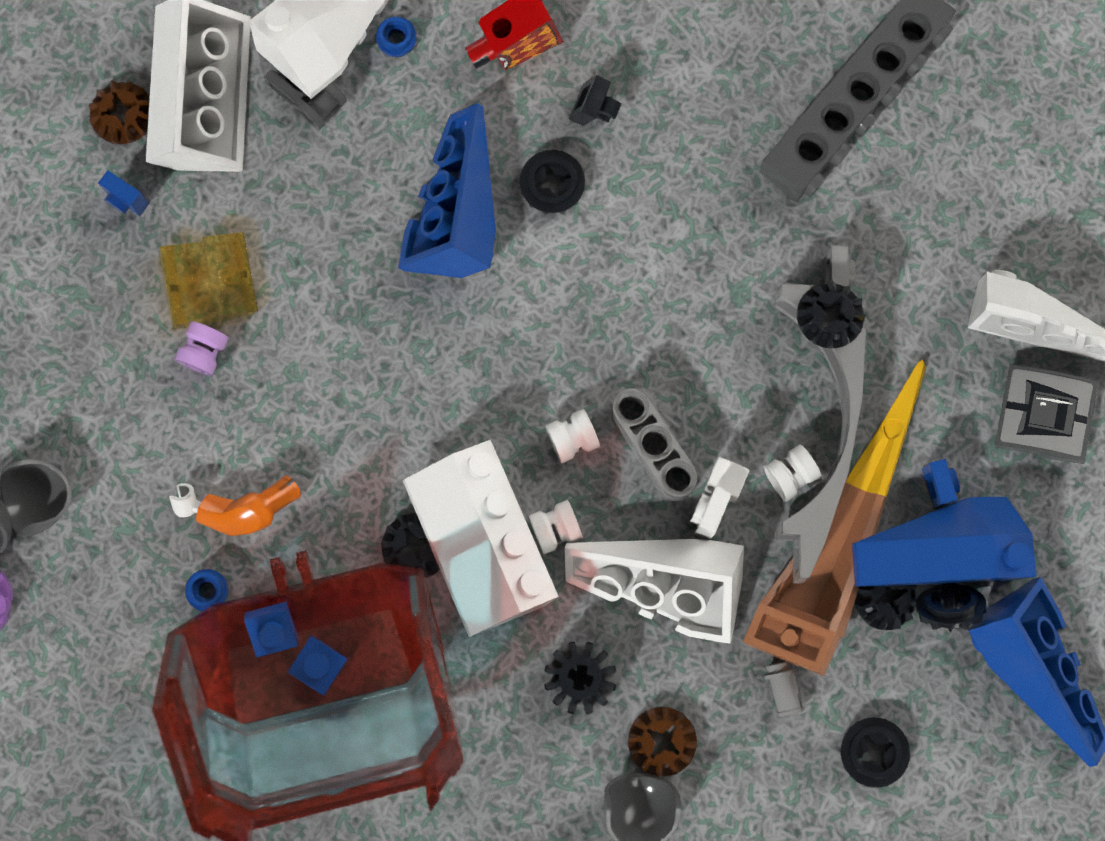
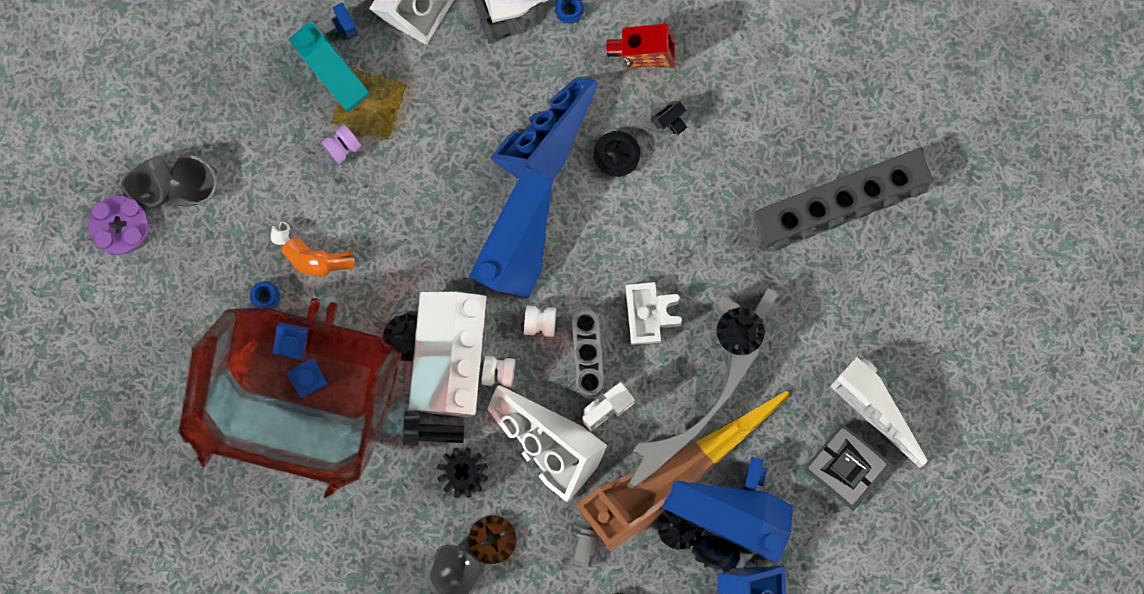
camera: 30 degrees right, 0 degrees up
(133, 258) = (329, 65): none -> teal slope
(491, 354) = (515, 246): none -> blue wedge
(492, 658) = (415, 432): none -> black piece
(700, 355) = (648, 313): none -> white plate
(793, 473) = (665, 417): white wheel -> none

